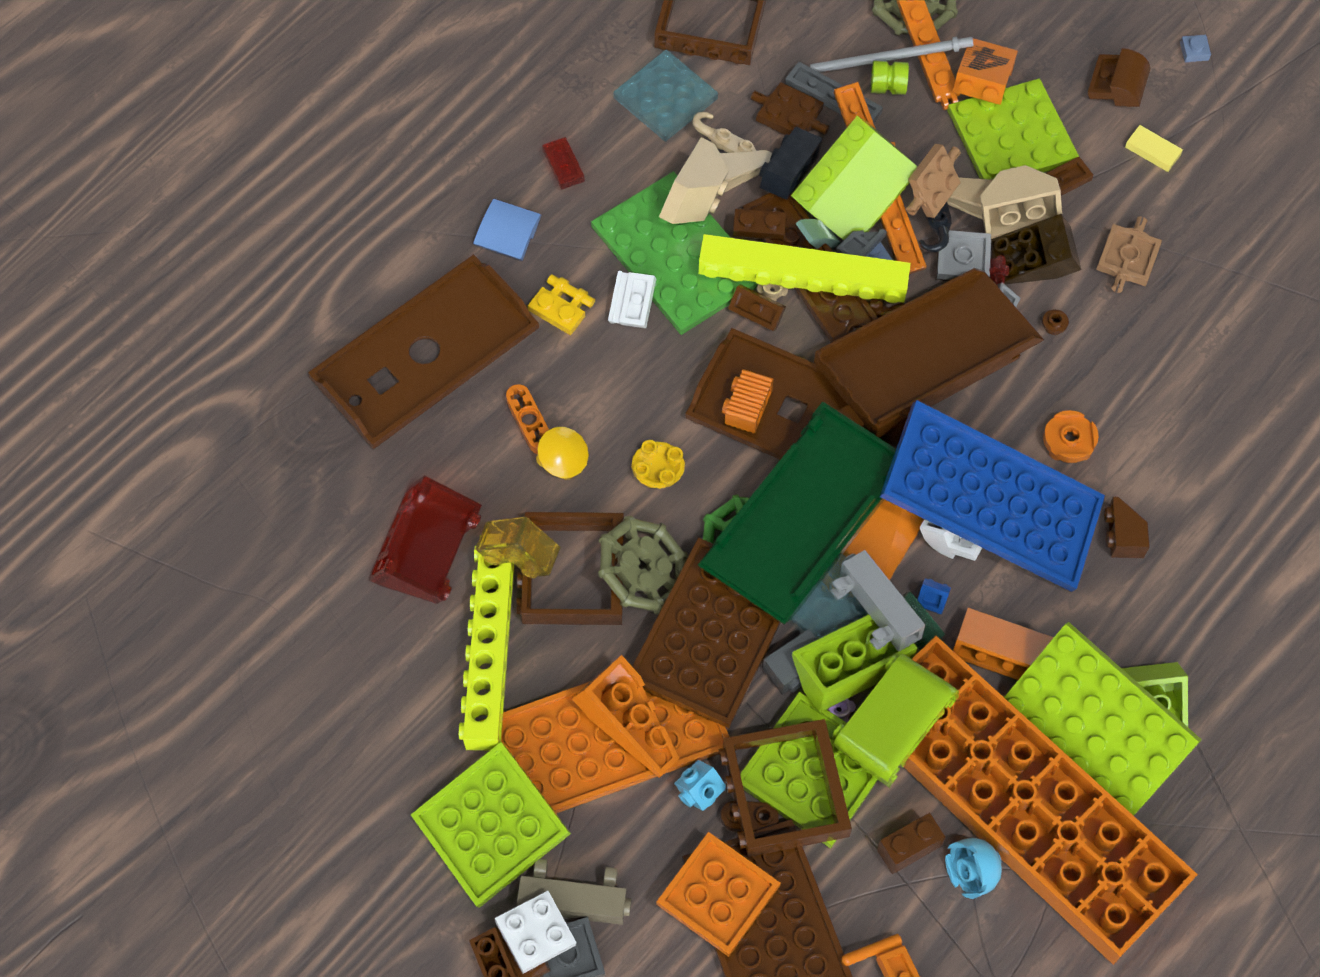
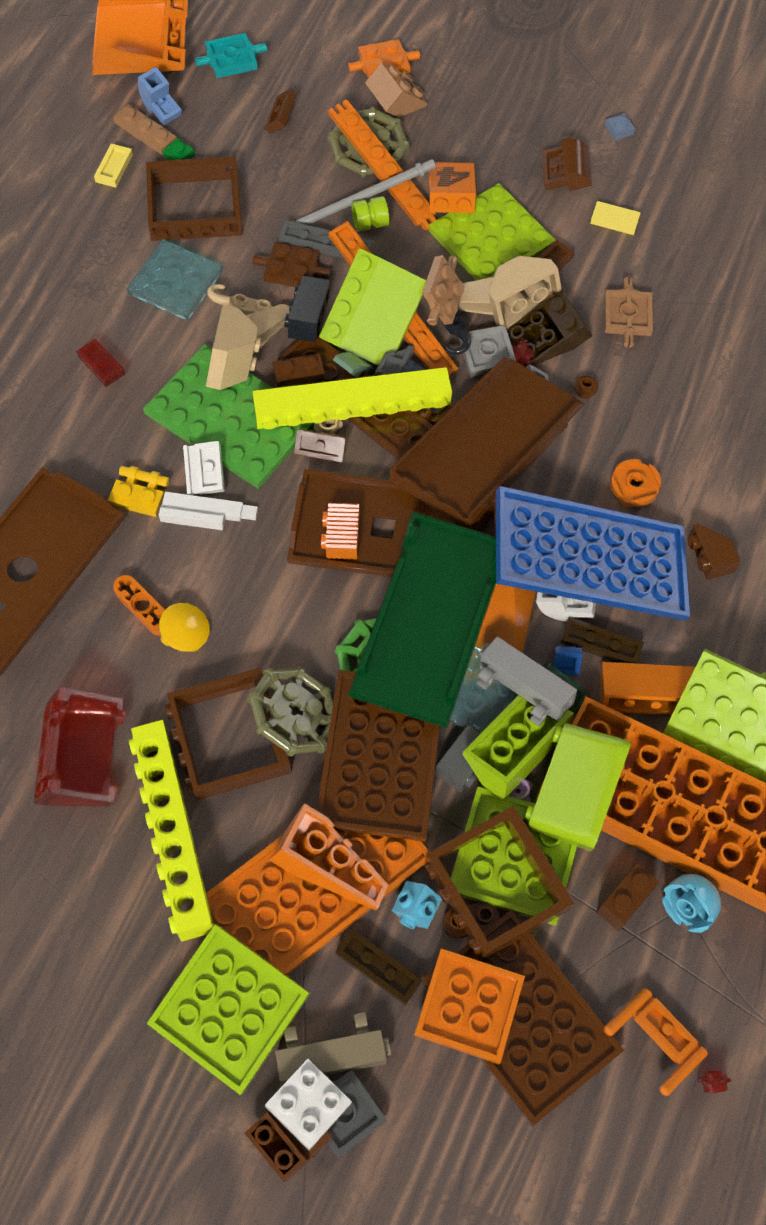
camera: 20 degrees left, 0 degrees up
(507, 229) = (66, 436): medium blue slope -> none
(520, 543) = (172, 725): clear yellow brick -> none
(618, 342) = (203, 511): none -> white piece
(645, 832) = (378, 967): none -> dark brown plate
(658, 464) = (276, 612): yellow dish -> none
(976, 588) = (602, 642): none -> dark brown plate

